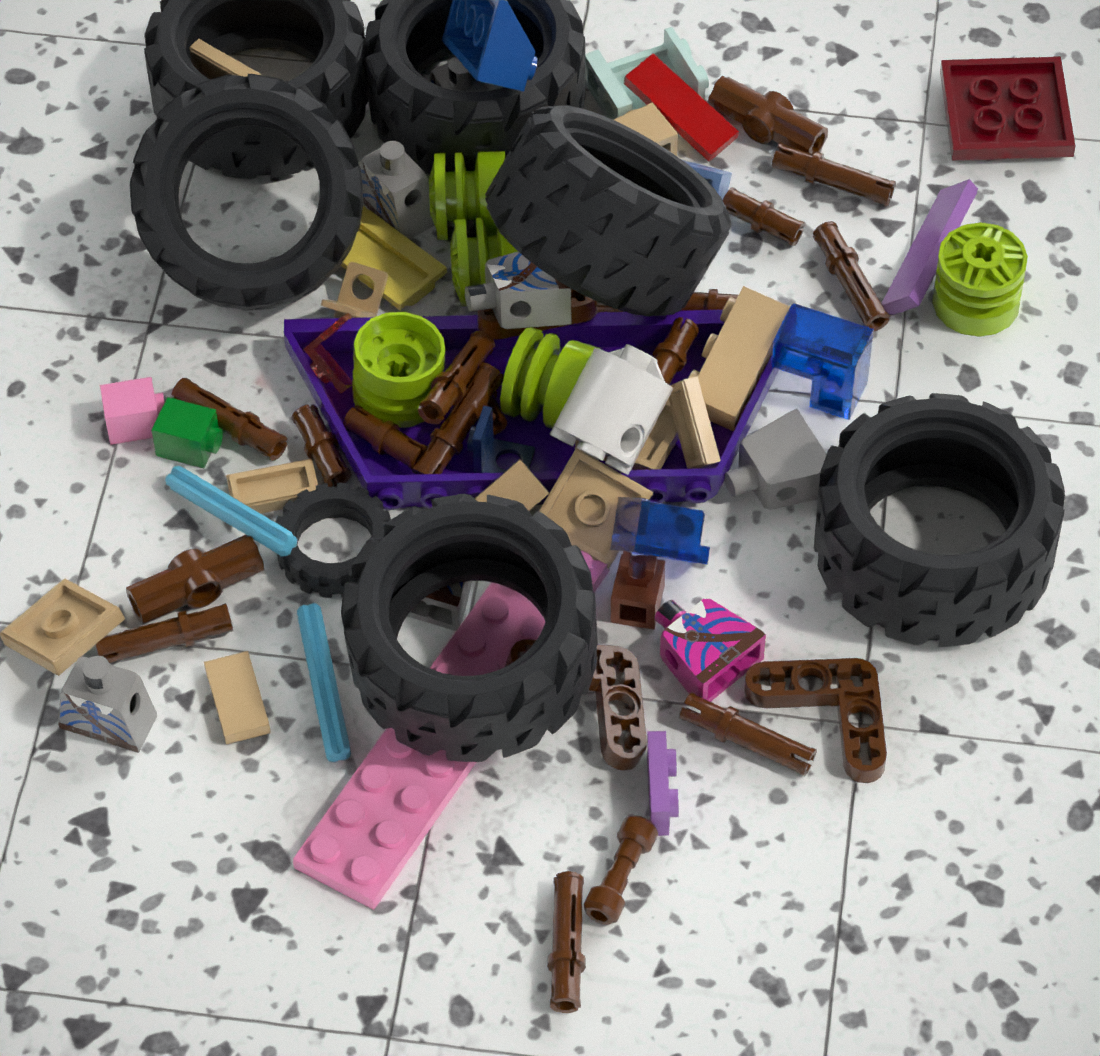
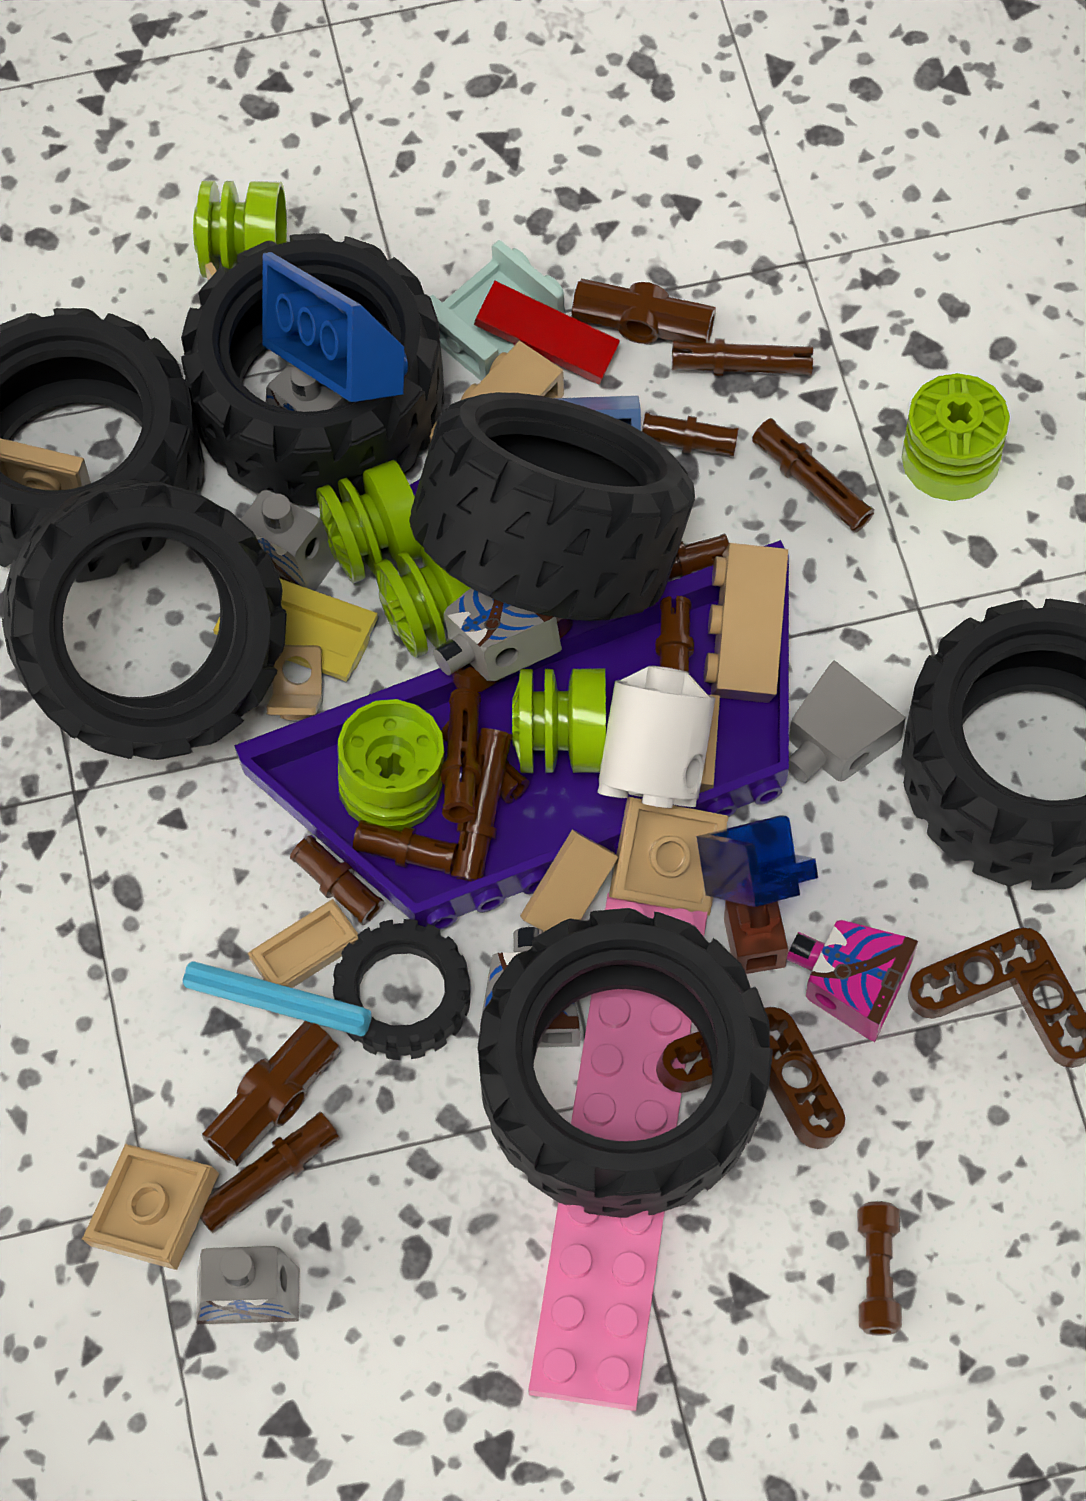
camera: 20 degrees left, 10 degrees up
(130, 409) = (109, 912): bright pink brick -> none
(186, 433) = (183, 918): green brick -> none
(237, 697) = (379, 1217): tan tile -> none
(242, 426) = (239, 887): reddish brown pin -> none
(323, 364) = (302, 784): clear red bracket -> none
(323, 683) = (465, 1164): medium azure axle -> none
(487, 449) = (519, 817): dark blue bracket -> none
(566, 959) = (868, 1393): reddish brown pin -> none
(660, 766) = (869, 1133): medium lavender plate -> none
(693, 424) = (739, 721): tan tile -> none
(731, 726) = (940, 1058): reddish brown pin -> none
(827, 352) = (840, 586): clear blue panel -> none
(922, 258) = (881, 413): medium lavender tile -> none
(1007, 108) = (889, 218): dark red plate -> none

